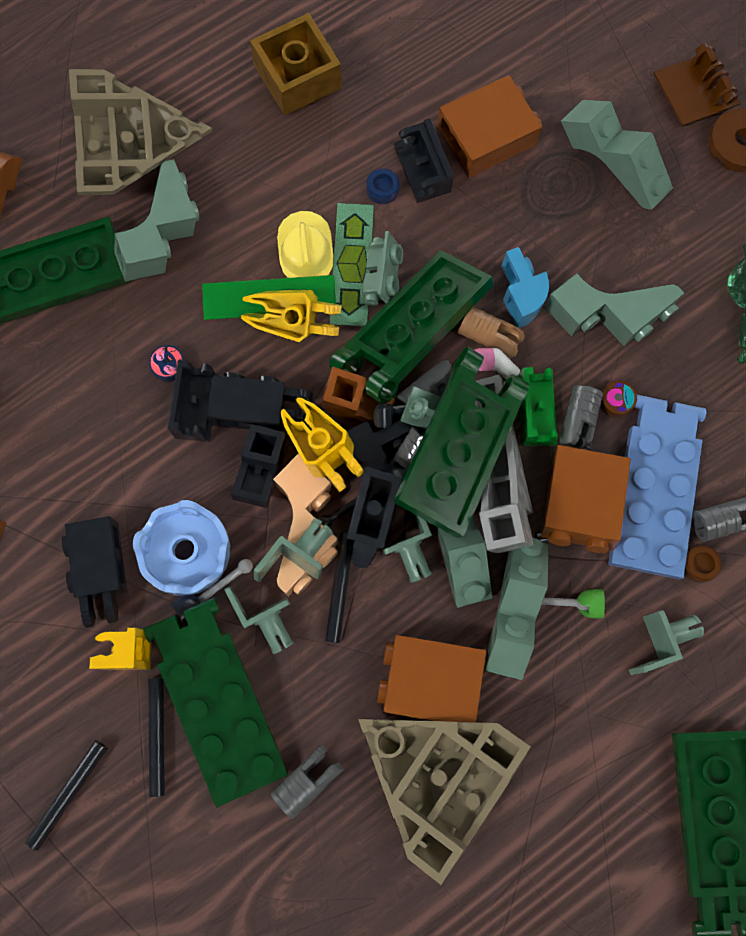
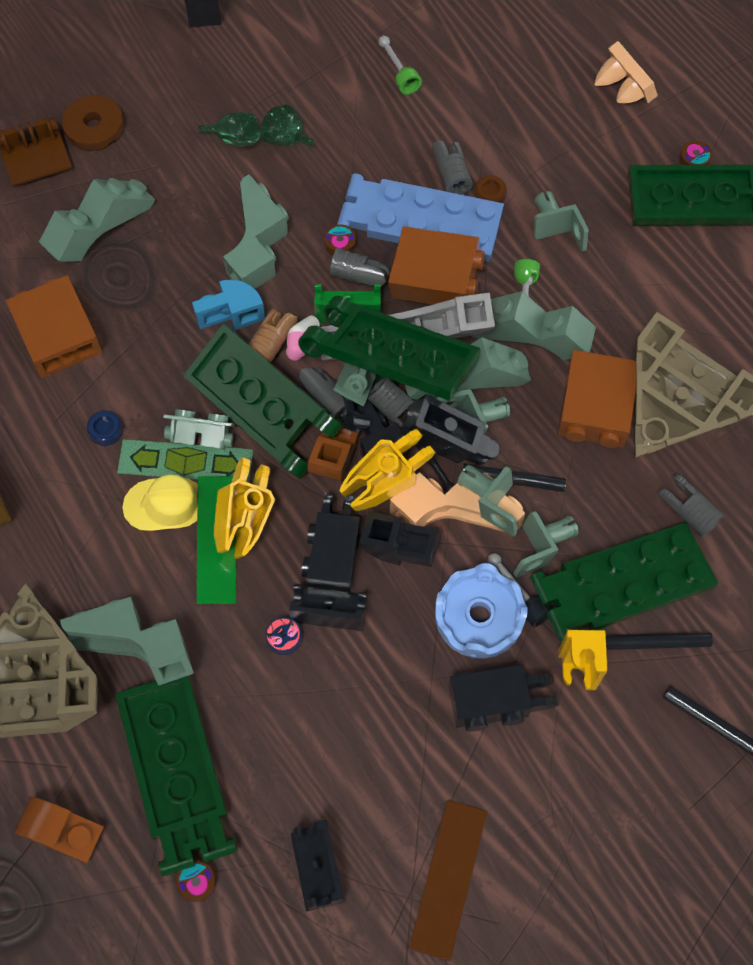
camera: 85 degrees left, 10 degrees down
(424, 161) = (84, 386): black hinge -> none

